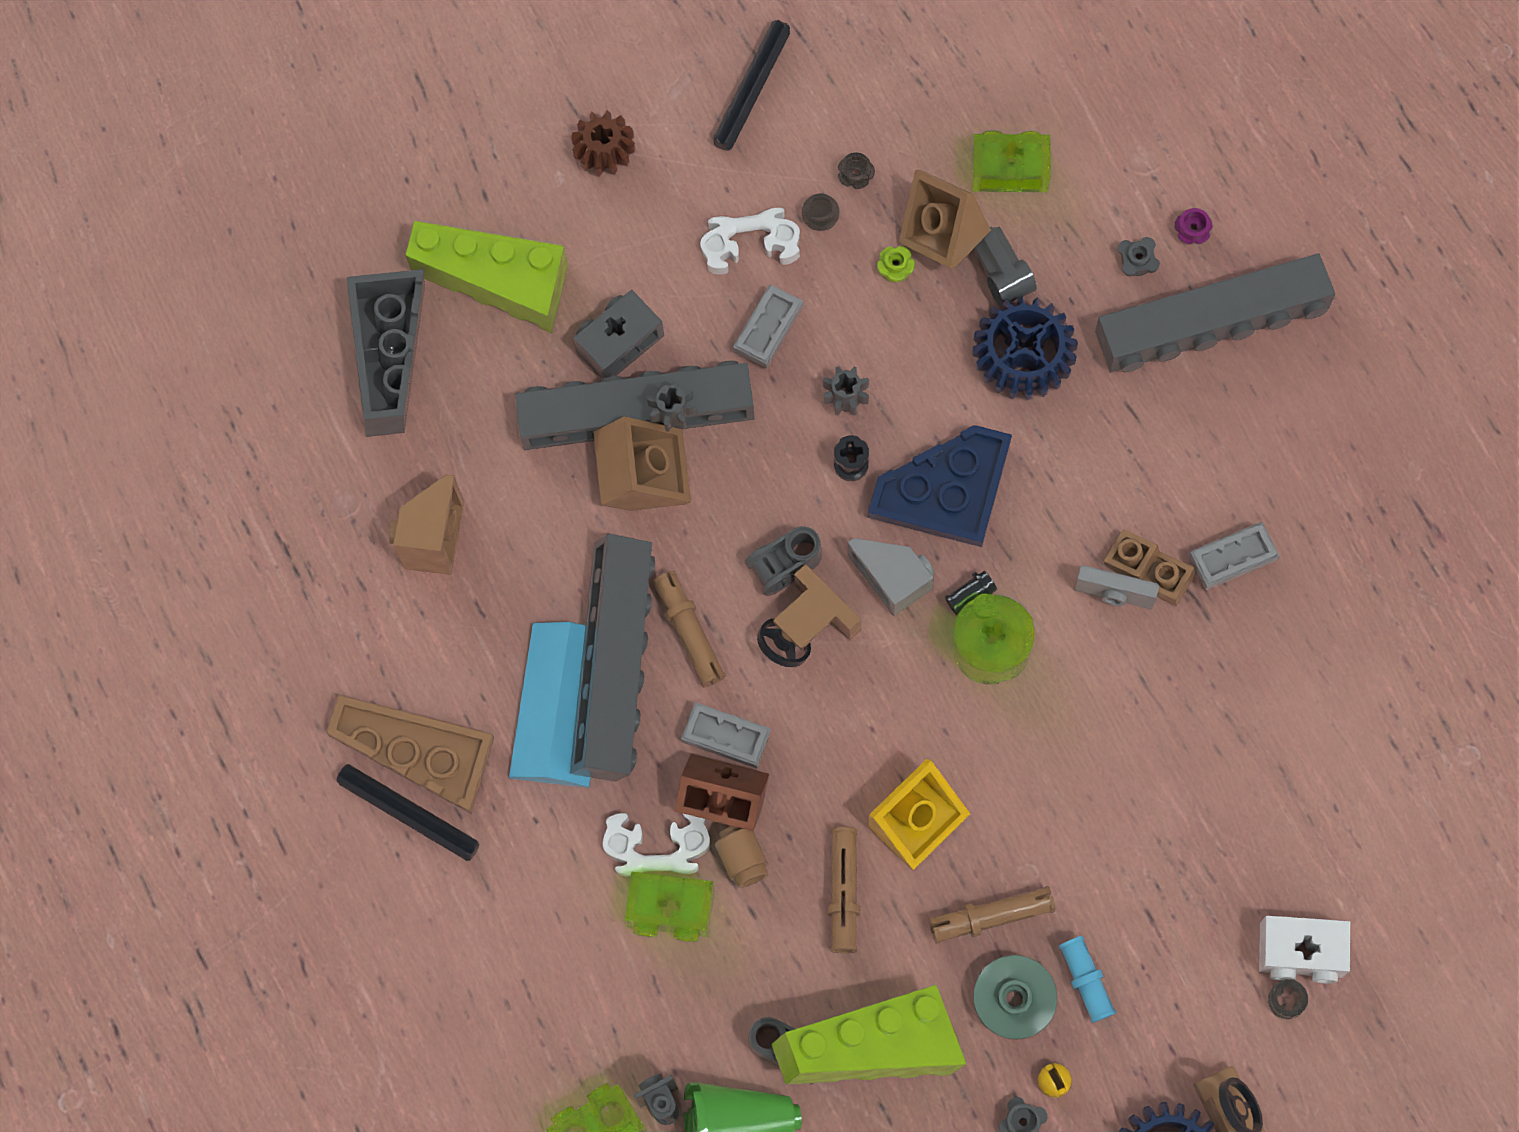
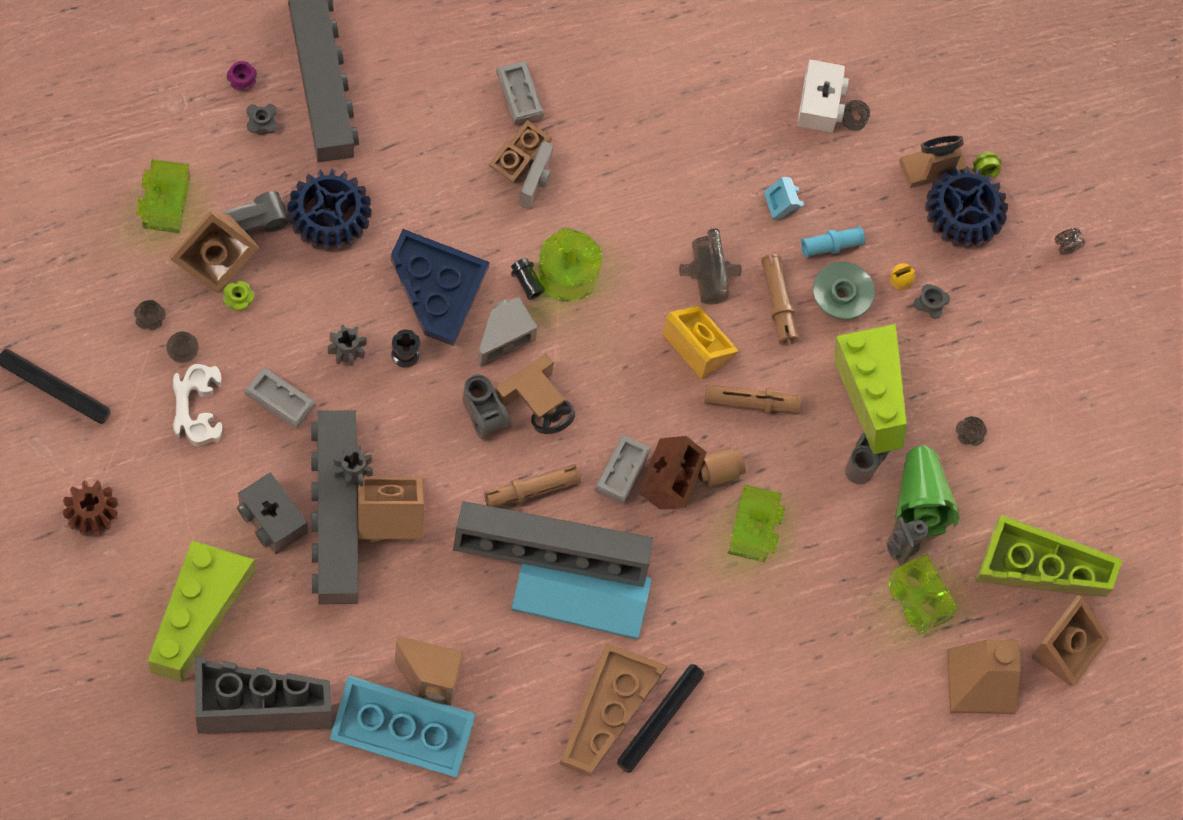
camera: 100 degrees left, 5 degrees down
(369, 500) = (402, 726): none -> medium azure slope
(620, 846) = (701, 559): white helmet -> none
(1018, 819) = (710, 268): none -> clear smoke pin
(1139, 905) = (782, 198): none -> medium azure tile

